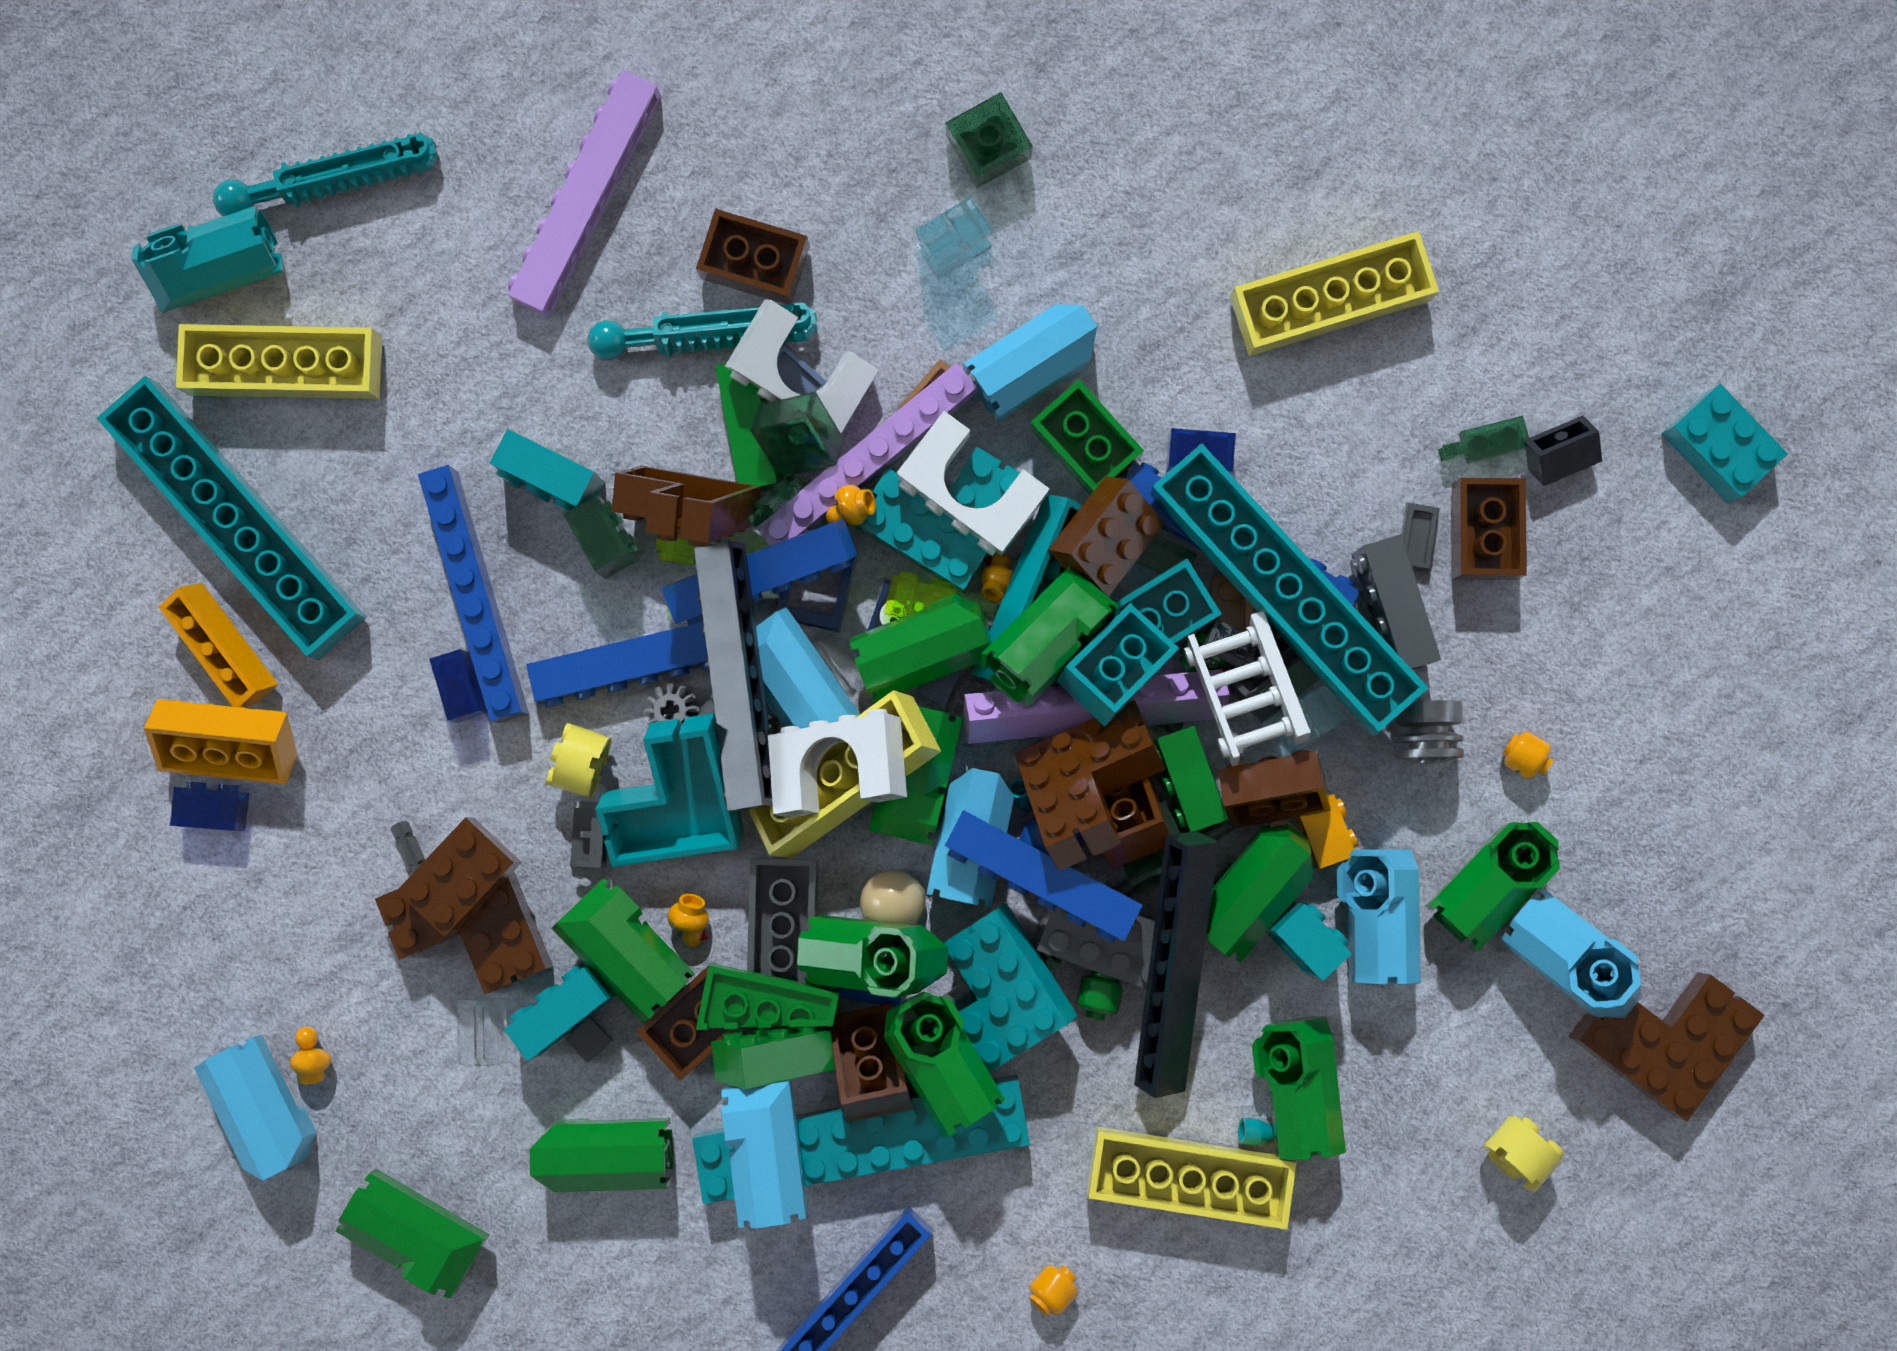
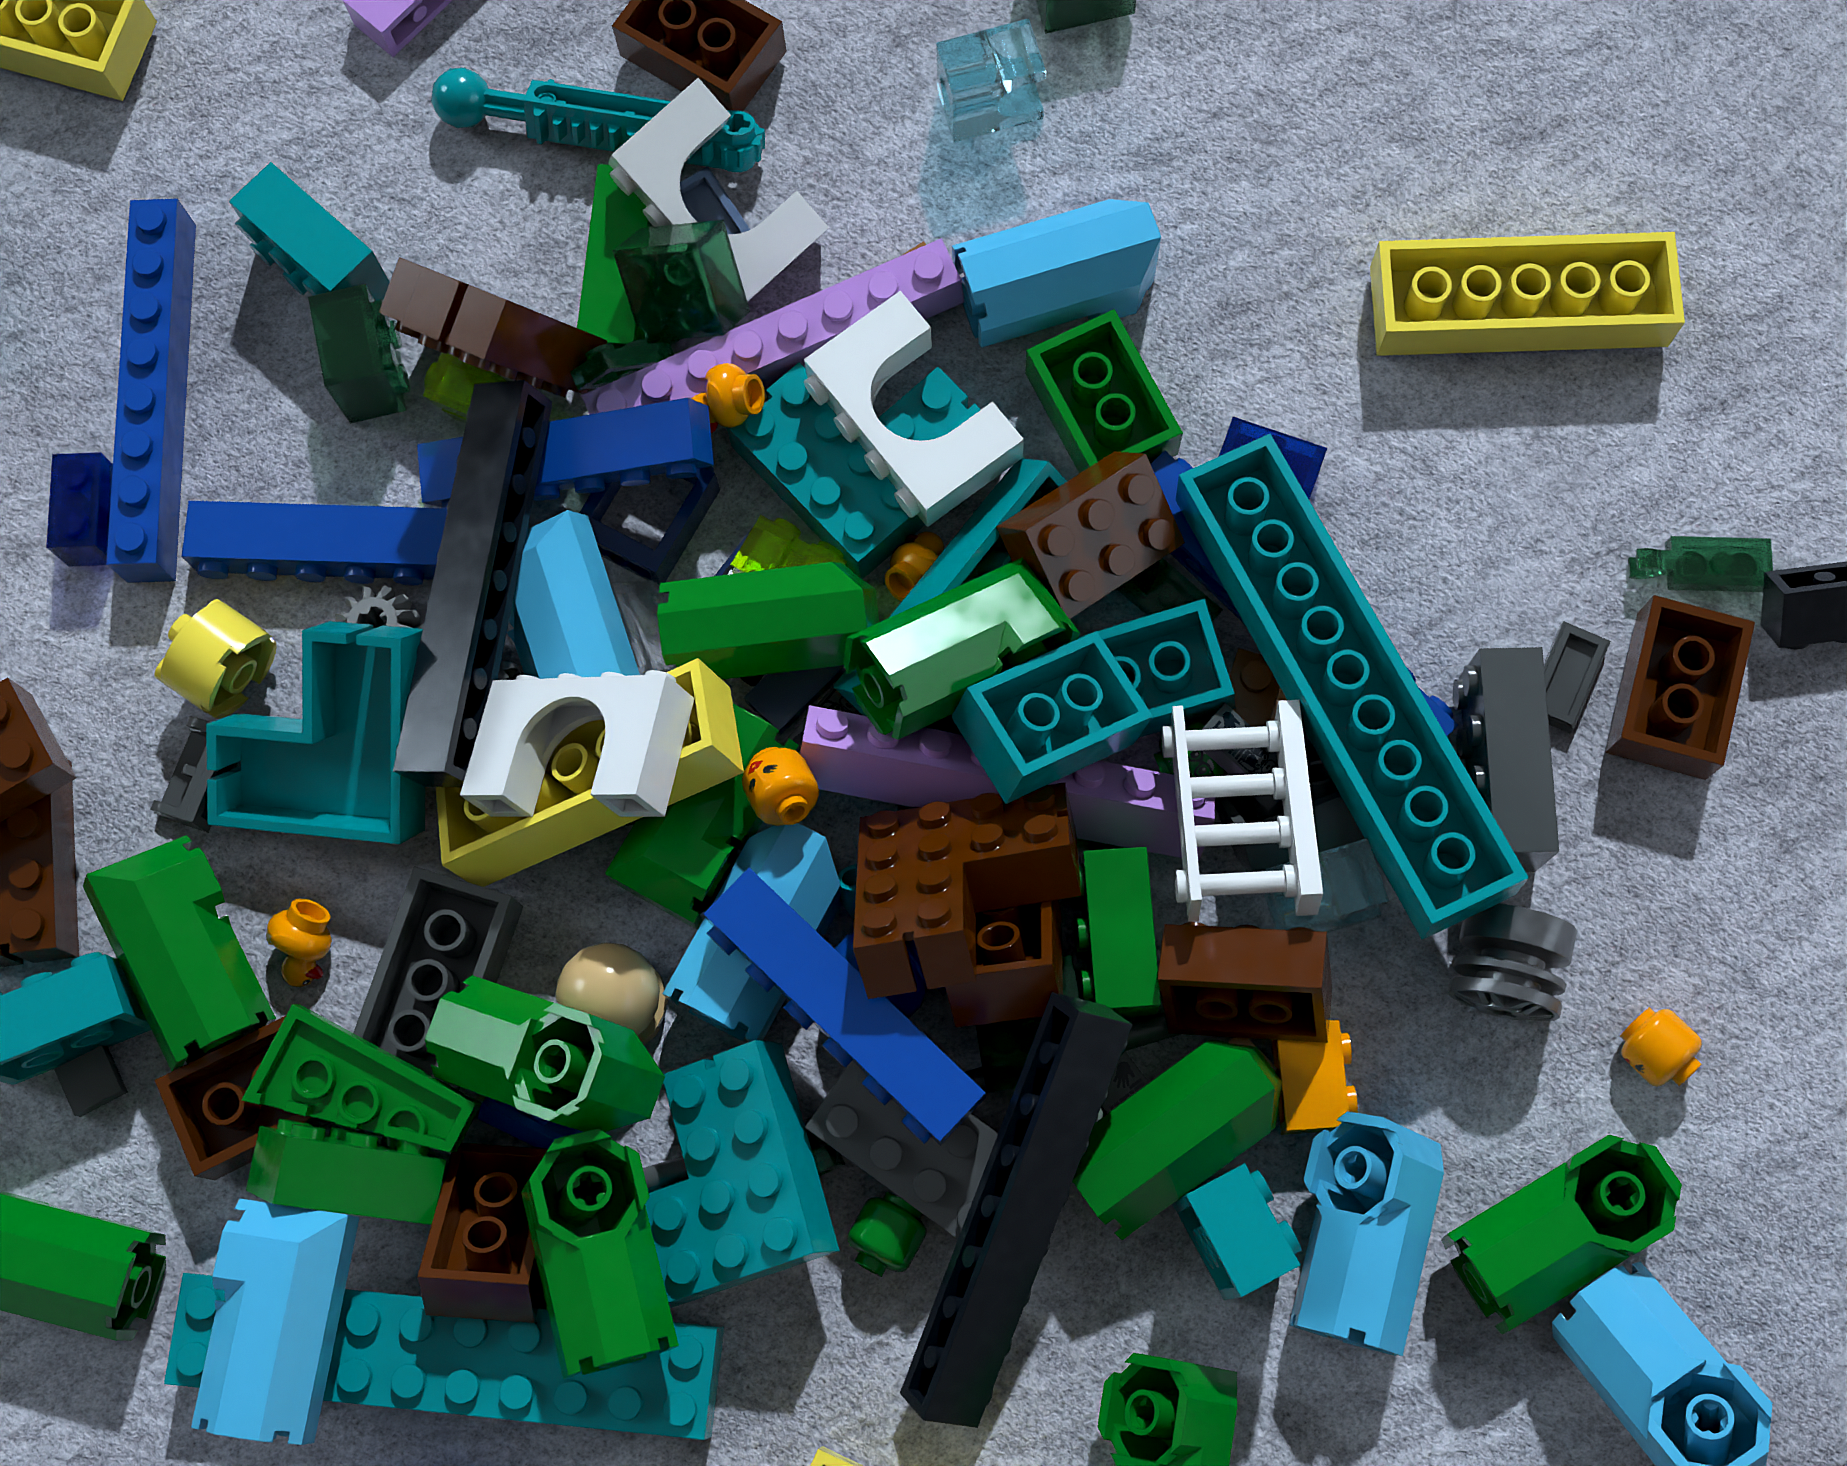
camera: 15 degrees right, 10 degrees down
(964, 752) = (780, 786): none -> light orange head

